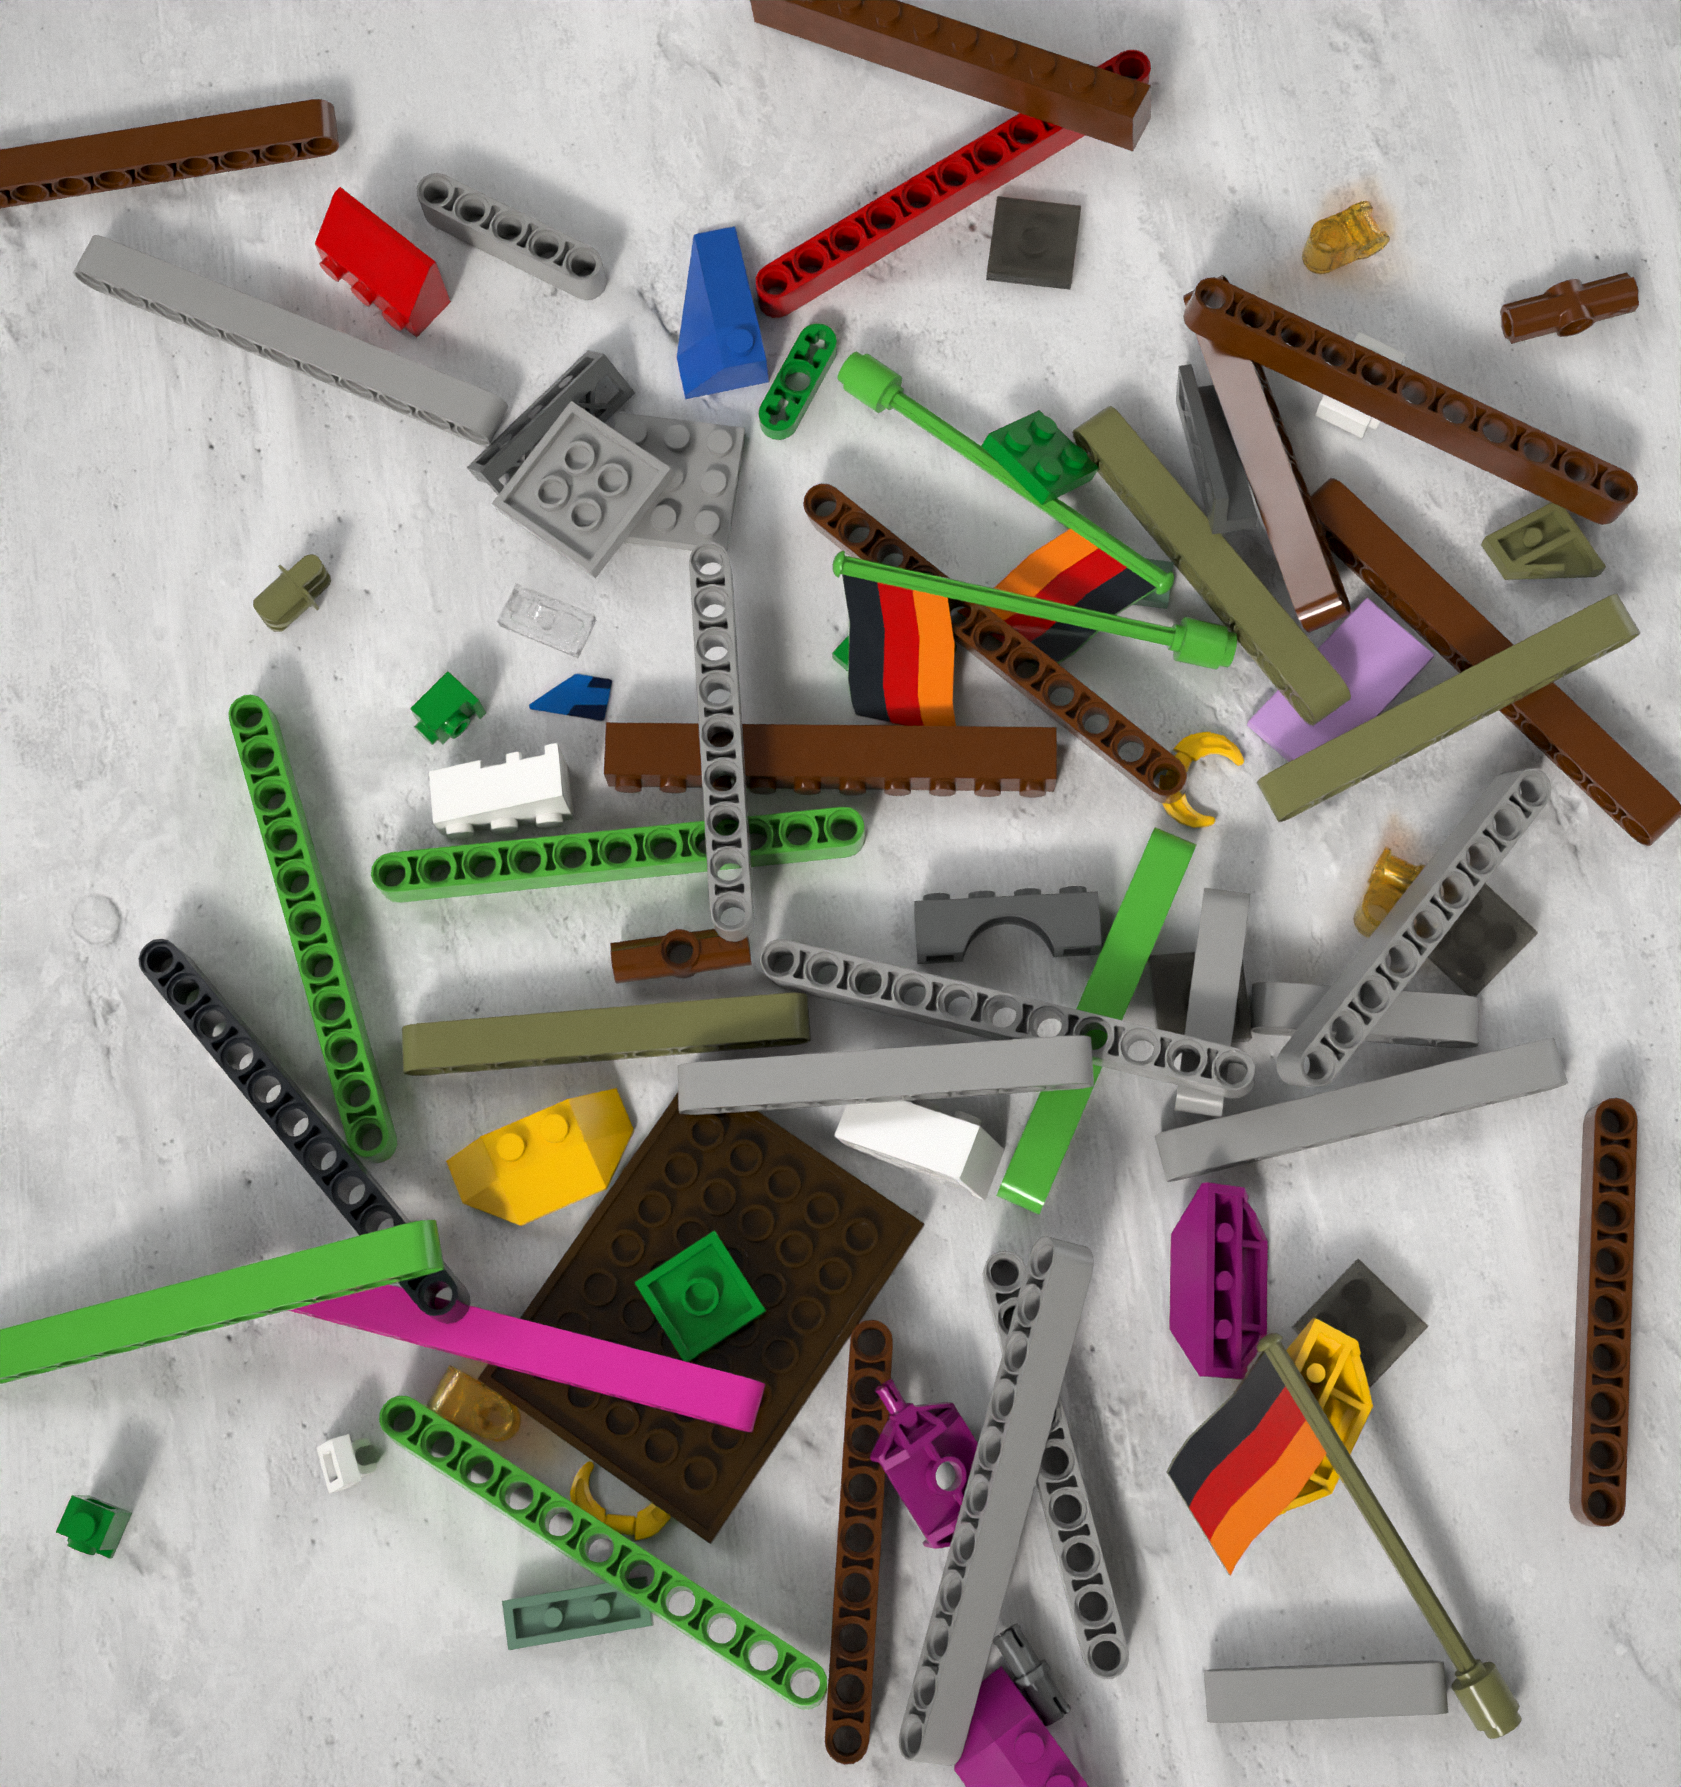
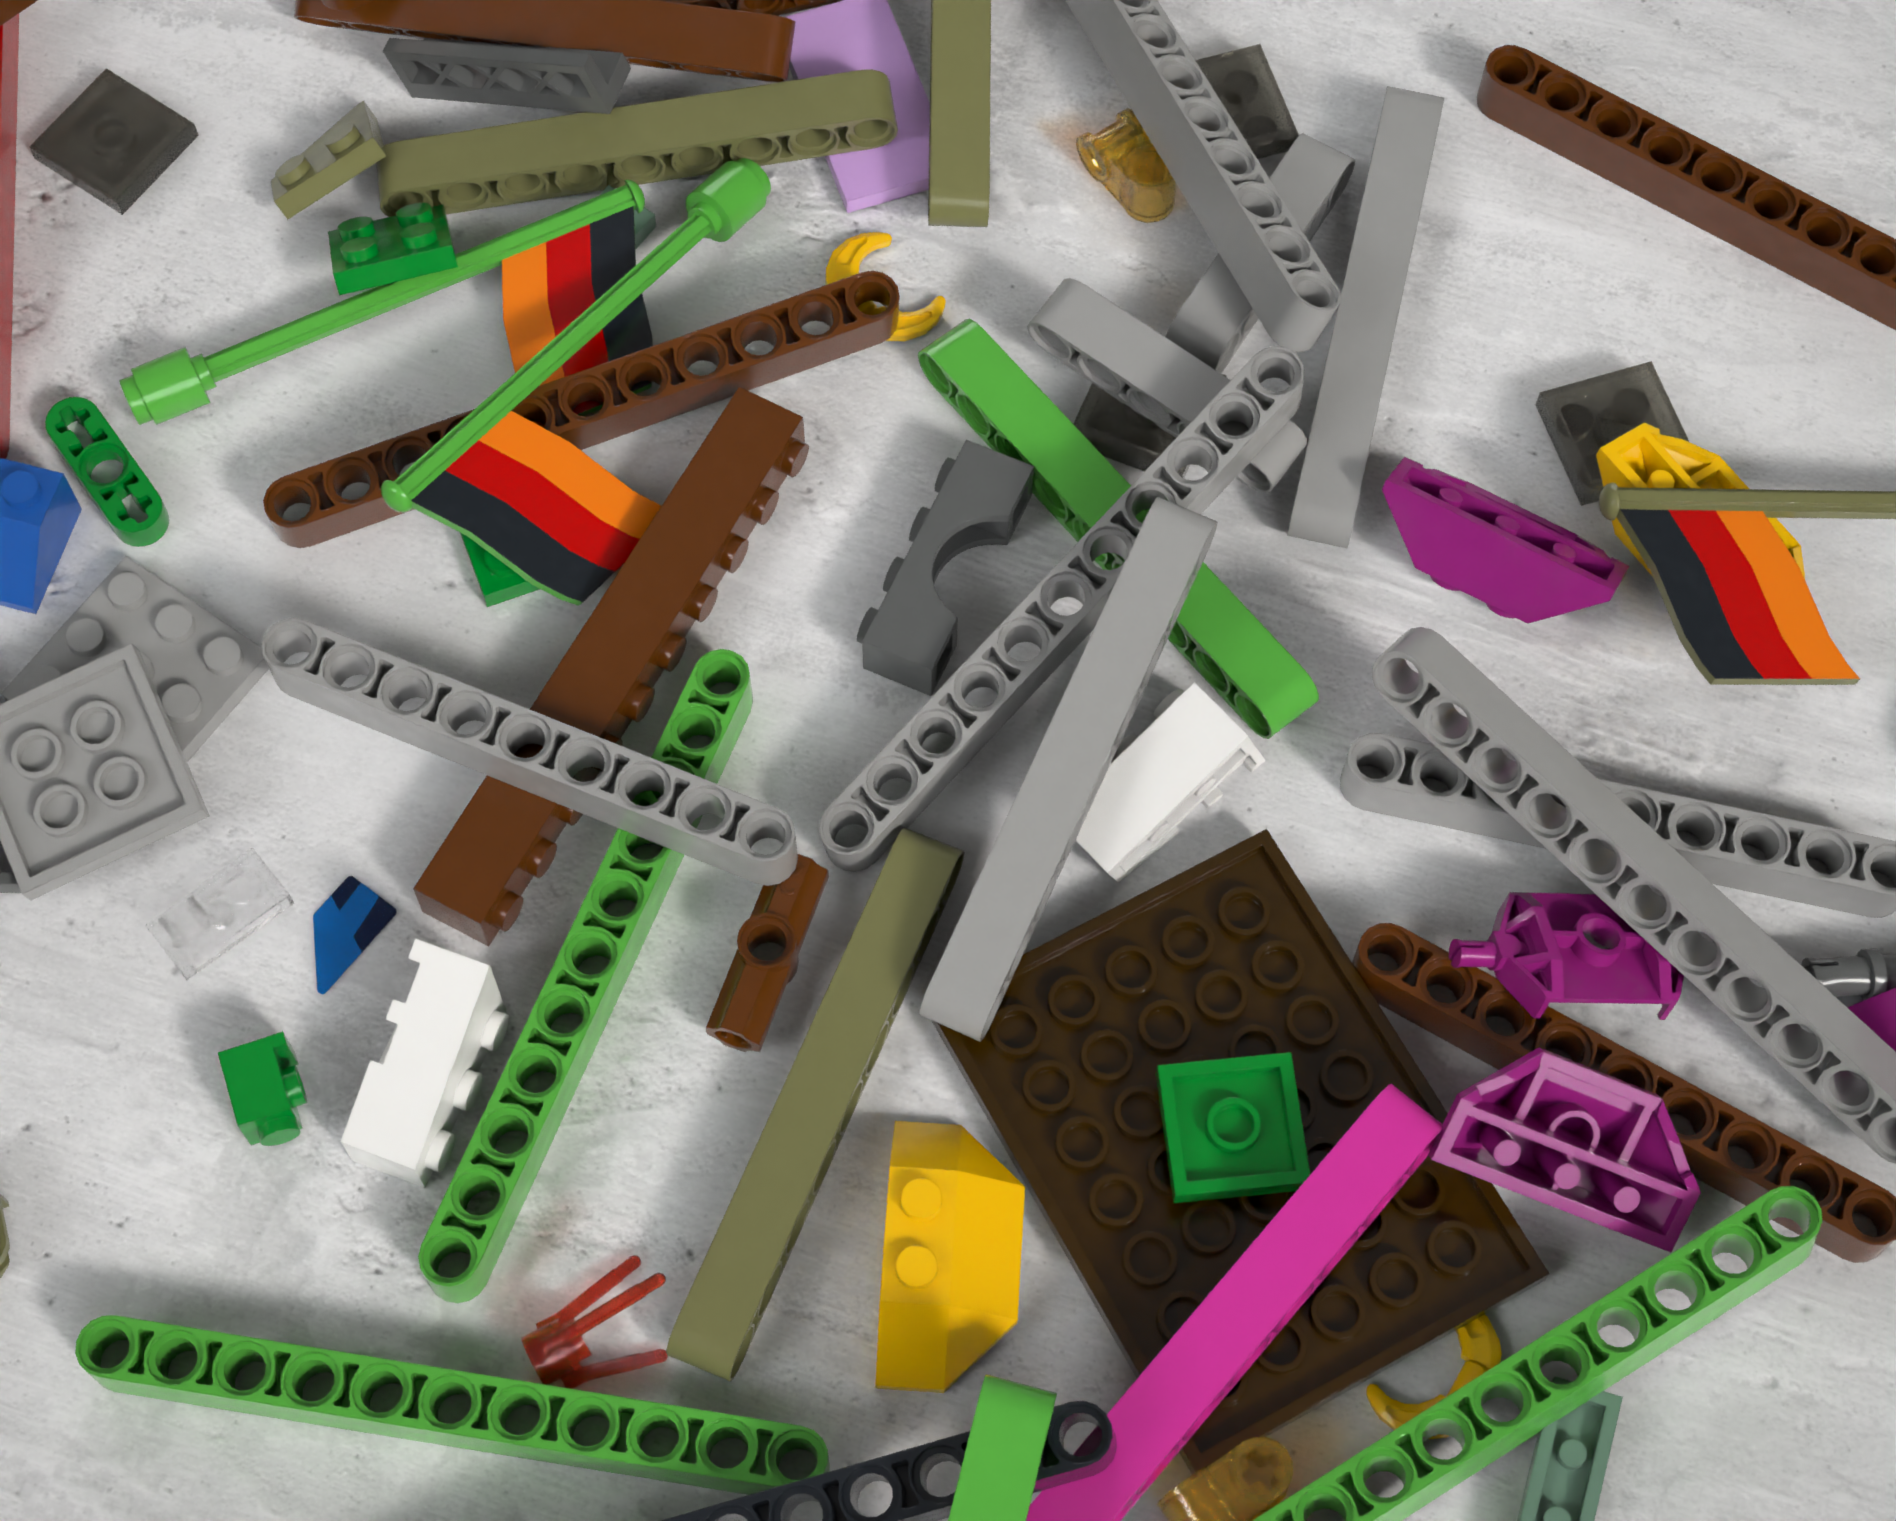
camera: 70 degrees left, 10 degrees down
(378, 966) = (559, 1339): none -> clear red plant
(787, 1520) = (1574, 1145): none -> magenta wedge
(1088, 382) = (329, 162): none -> olive wing

